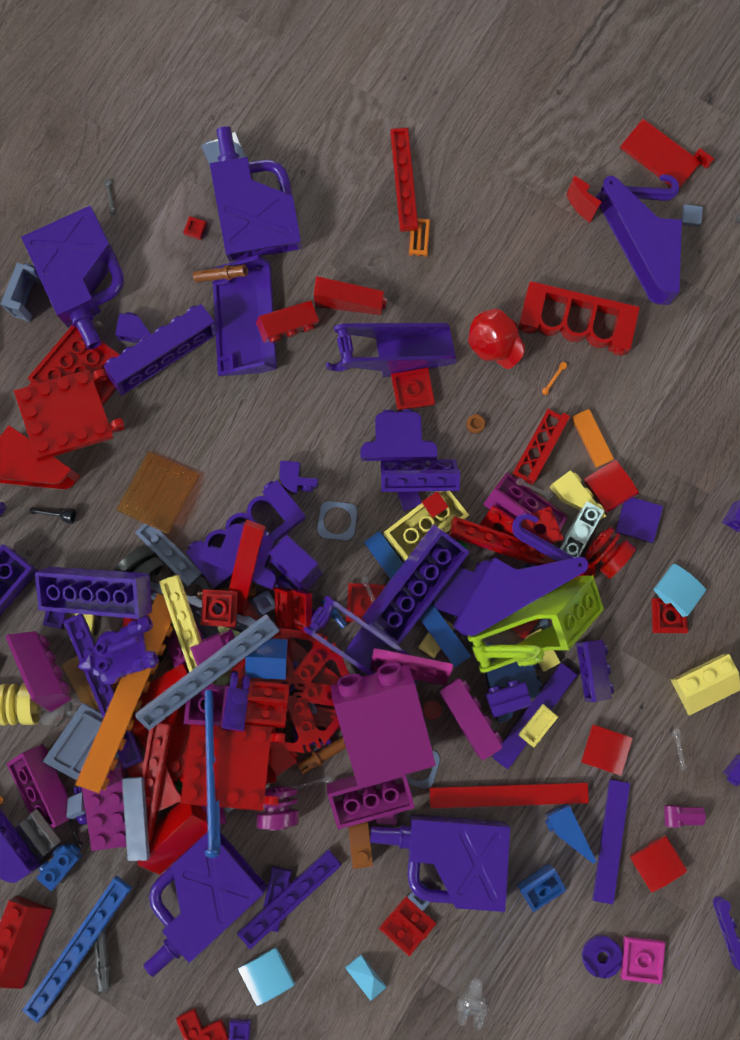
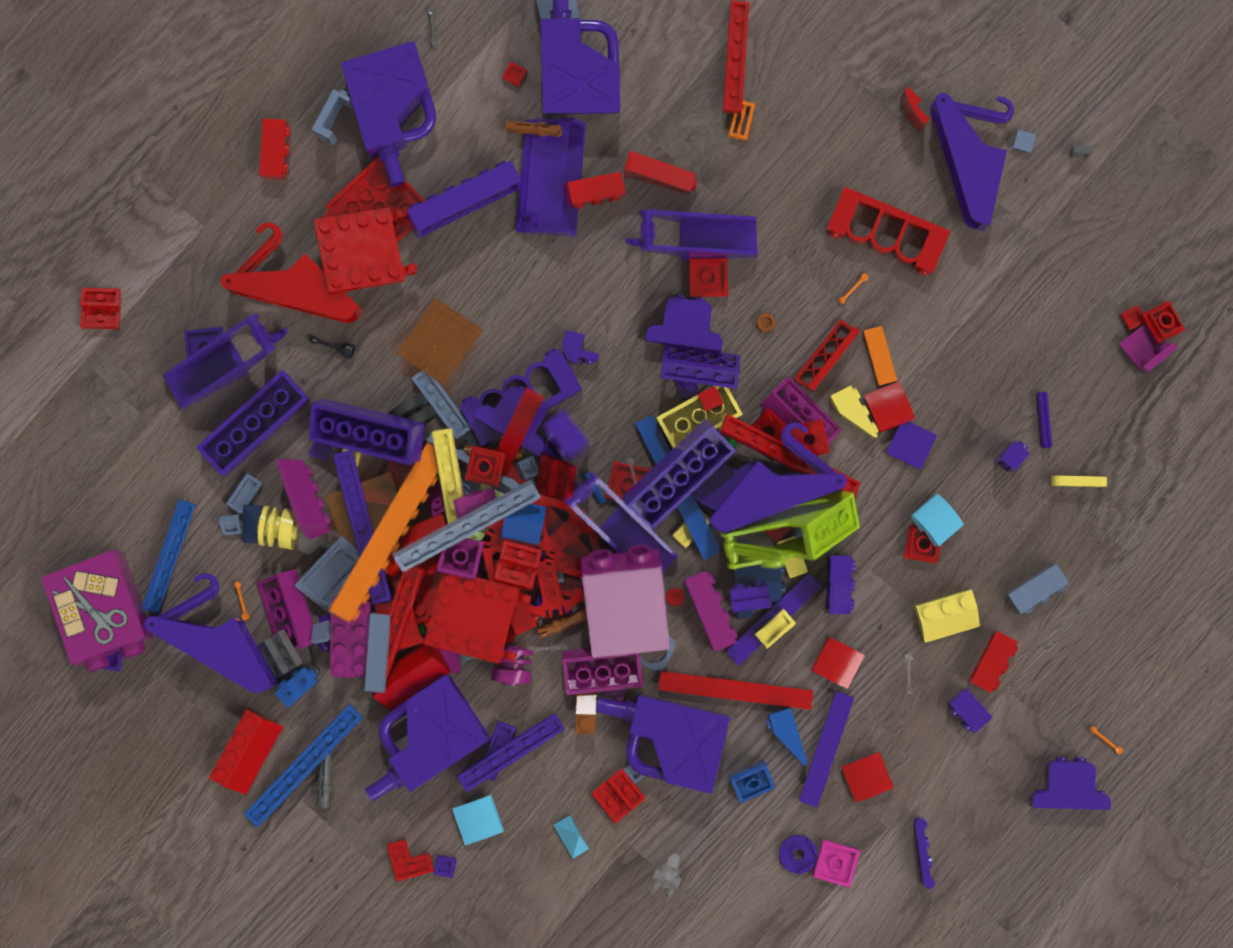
camera: 10 degrees right, 5 degrees up
(121, 652) = (386, 494): dark purple shield -> none
(130, 328) = (437, 171): dark purple slope -> none
(212, 806) = (454, 652): blue bar -> none
(236, 704) = (489, 560): dark purple hinge -> none
(323, 532) = (616, 414): sand blue piece -> none
(421, 668) = (670, 555): dark pink tile -> none
(496, 338) = (800, 240): red piece -> none
(520, 482) = (800, 388): clear hinge -> none
(581, 529) = (850, 447): light aqua slope -> none
(609, 552) = (874, 472): red wheel -> none
(659, 153) = (1003, 71): red tile -> none
(678, 816) = (896, 736): magenta piece -> none
(704, 157) = (1048, 82): red slope -> none

